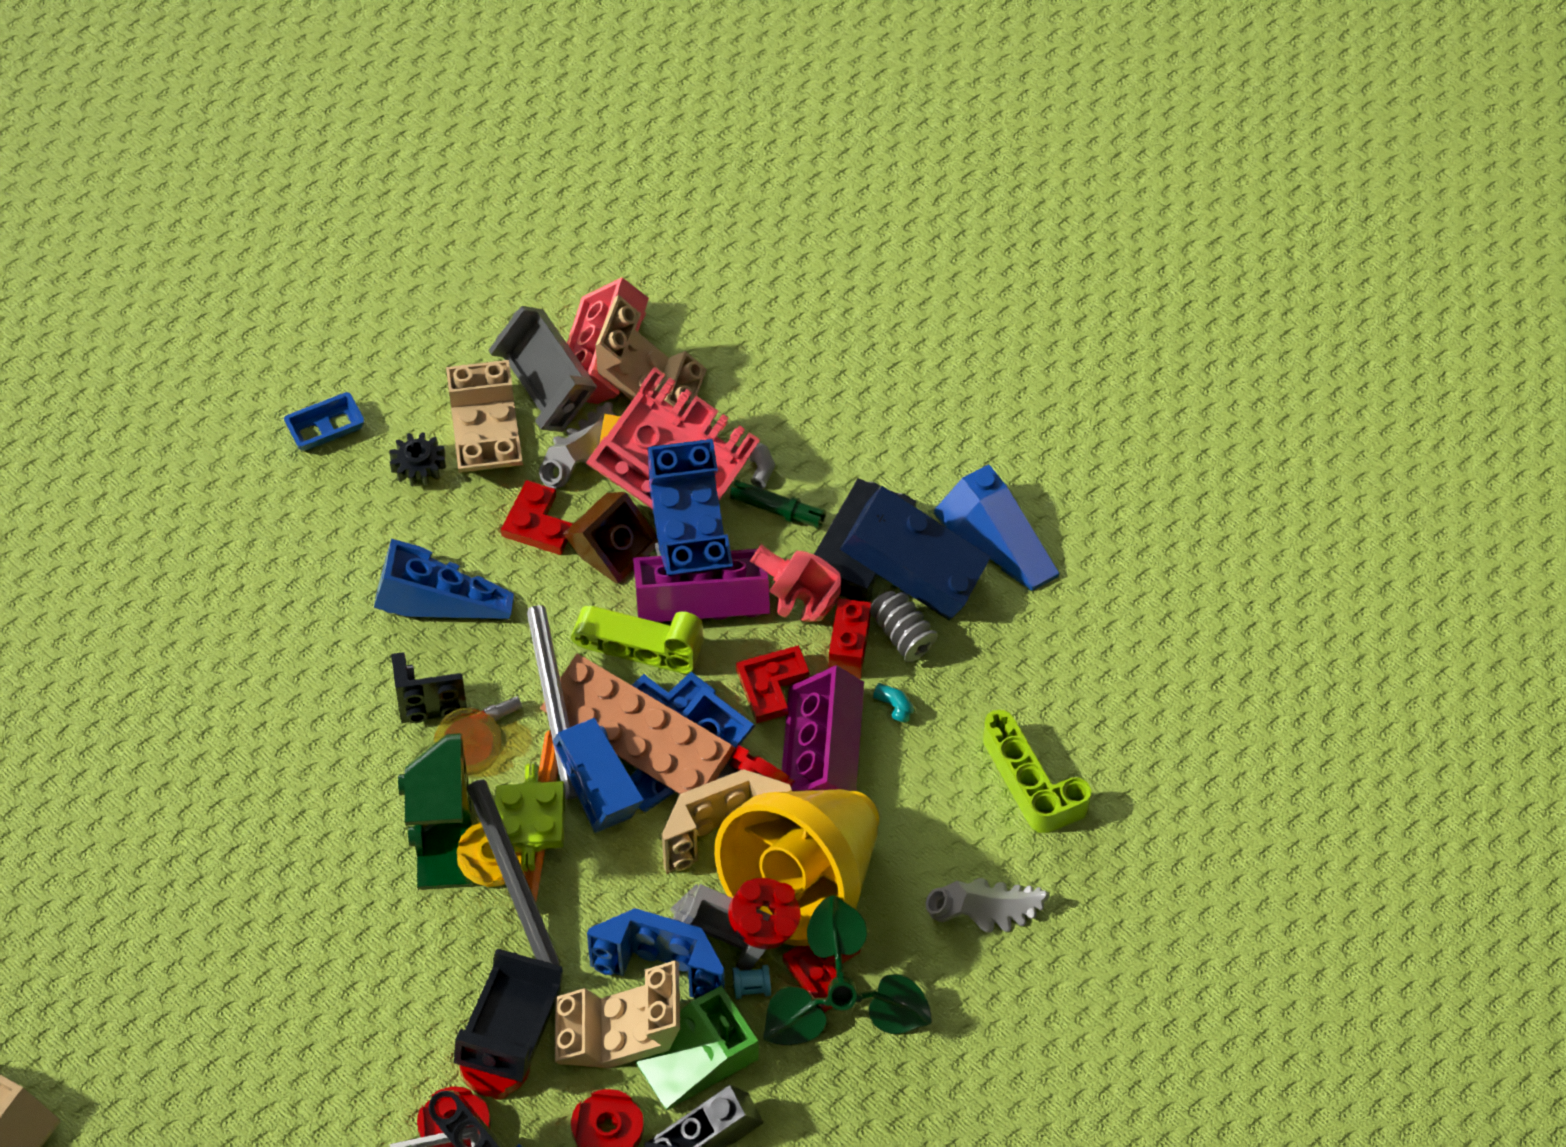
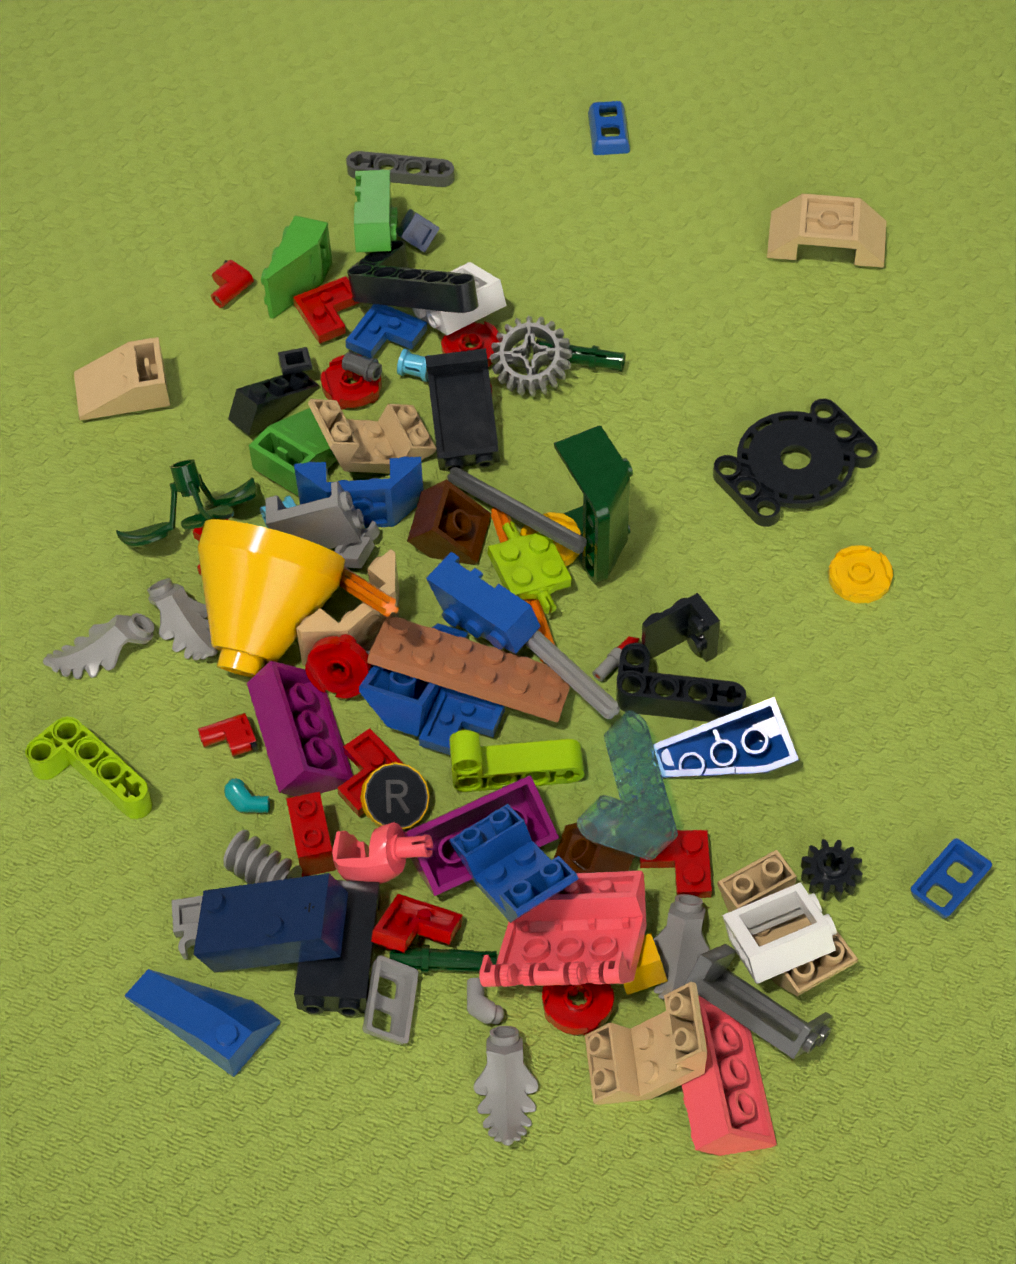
camera: 160 degrees right, 0 degrees up
(203, 885) = (787, 487): none -> black piece
(214, 714) = (860, 574): none -> yellow tile
(333, 1055) = (593, 357): none -> dark green pin
(400, 1061) = (542, 356): none -> light grey gear
(424, 629) = (717, 696): none -> black beam
(460, 408) = (786, 951): none -> white window
(479, 736) = (619, 620): clear yellow tile -> none
(528, 1116) = (412, 365): none -> medium azure bush
(547, 545) = (642, 817): none -> clear light blue beam
(586, 898) = (449, 523): none -> reddish brown slope
(592, 1117) = (368, 368): none -> dark grey pin
(709, 785) = (368, 593): none -> orange axle
(760, 642) = (395, 795): none -> black tile
(771, 395) = (506, 1086): none -> light grey plant
(778, 899) = (274, 497): red plate -> none
(799, 534) = (411, 917): none -> red plate
(830, 480) = (398, 1008): none -> light grey piece
(884, 771) = (234, 730): none -> red piece
(892, 899) = (182, 619): none -> light grey plant
(982, 606) = (185, 921): none -> light grey plate

